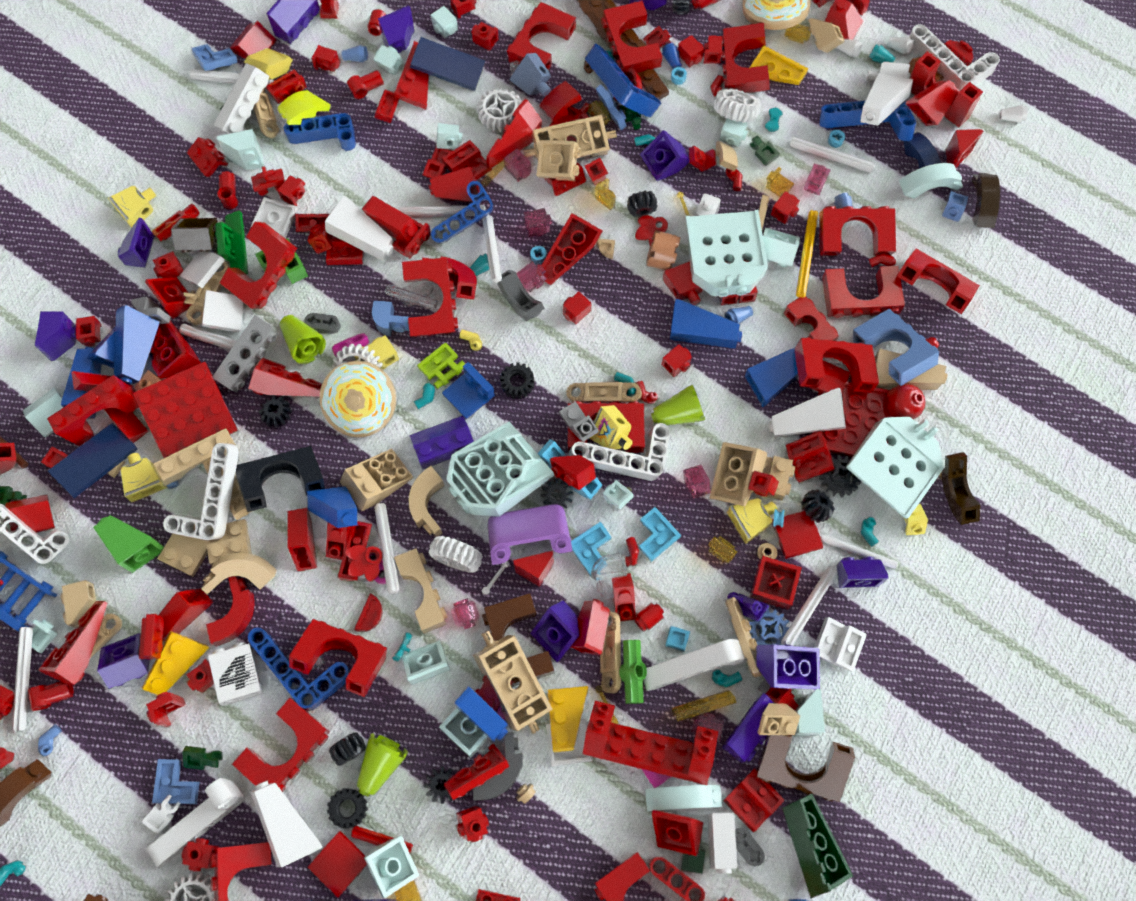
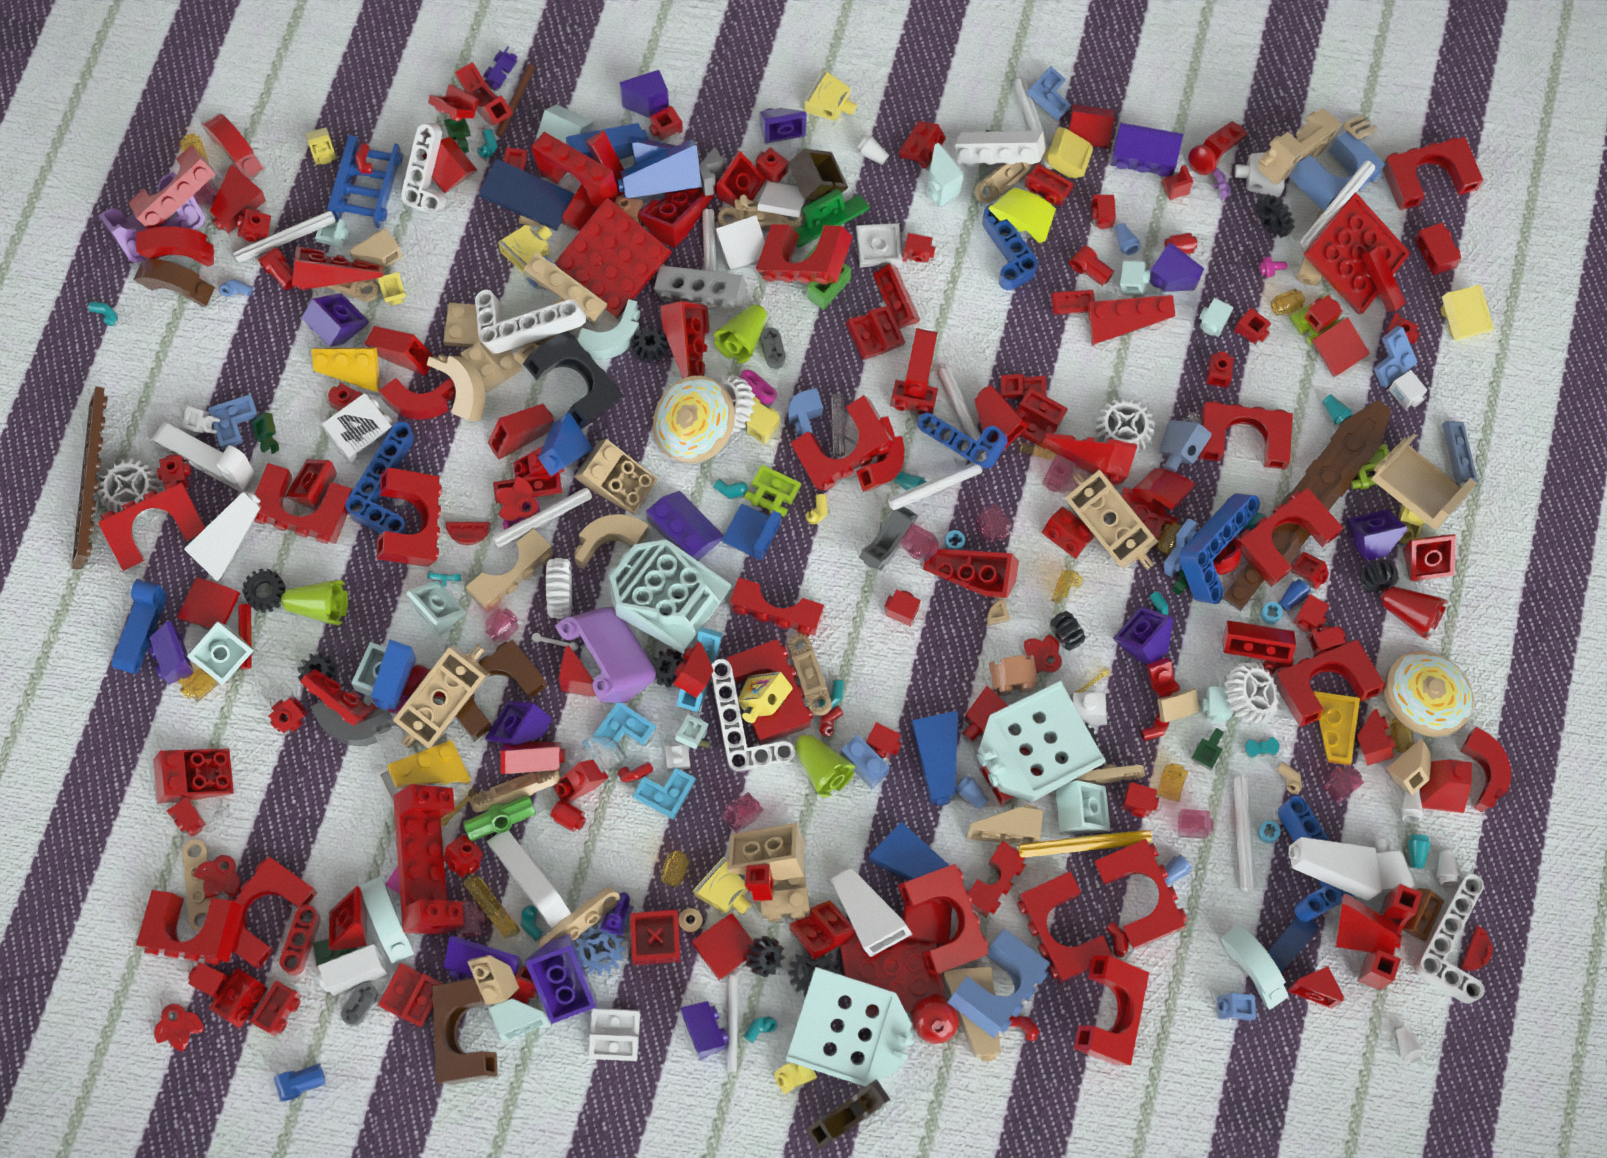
camera: 65 degrees right, 0 degrees up
(30, 475) = (489, 146): none -> teal arm
(121, 601) = (392, 288): none -> light yellow bracket
(126, 544) = (450, 266): bright green slope -> none
(151, 637) = (361, 333): red bracket -> none
(163, 705) = (295, 373): red bracket -> none
(164, 231) = (813, 141): red hinge -> none
(193, 192) = (872, 150): none -> white cone
(227, 190) = (890, 182): red piece -> none
(259, 438) = (613, 342): none -> light aqua arch
(265, 733) = (312, 483): none -> red slope
(267, 179) = (918, 218): red hips -> none
(318, 239) = (872, 299): red bracket -> none
(347, 749) = (320, 564): black gear -> none
(358, 229) = (894, 335): white slope -> none
(447, 64) = (1158, 344): dark blue tile -> none
(448, 136) = (1060, 383): light aqua brick -> none
(511, 371) = (787, 564): black tyre -> none
(523, 414) = (802, 617): none -> red arch
(525, 793) = (337, 757): tan plate -> none
(558, 160) = (1073, 513): tan plate -> none
(577, 422) = (756, 657): light grey slope -> none
(596, 171) = (1089, 566): red brick -> none
(630, 516) = (677, 757): none -> white tile
(654, 713) = (463, 856): none -> red brick
(677, 638) = (557, 856): medium azure tile -> none
(694, 374) = (866, 761): none -> medium blue brick
(699, 88) = (1259, 642): none -> red brick
(778, 518) = (732, 916): medium azure bush -> none
(780, 289) = (1012, 826): none -> tan slope
(797, 47) = (1374, 741): none -> red slope
(803, 109) = (1293, 778): none -> tan arm
(809, 606) = (642, 984): white axle -> none
(815, 847) = (379, 1071): dark green wedge -> none
(820, 79) = (1343, 783): none -> clear pink brick
(987, 199) = (1258, 1039): dark brown arch -> none

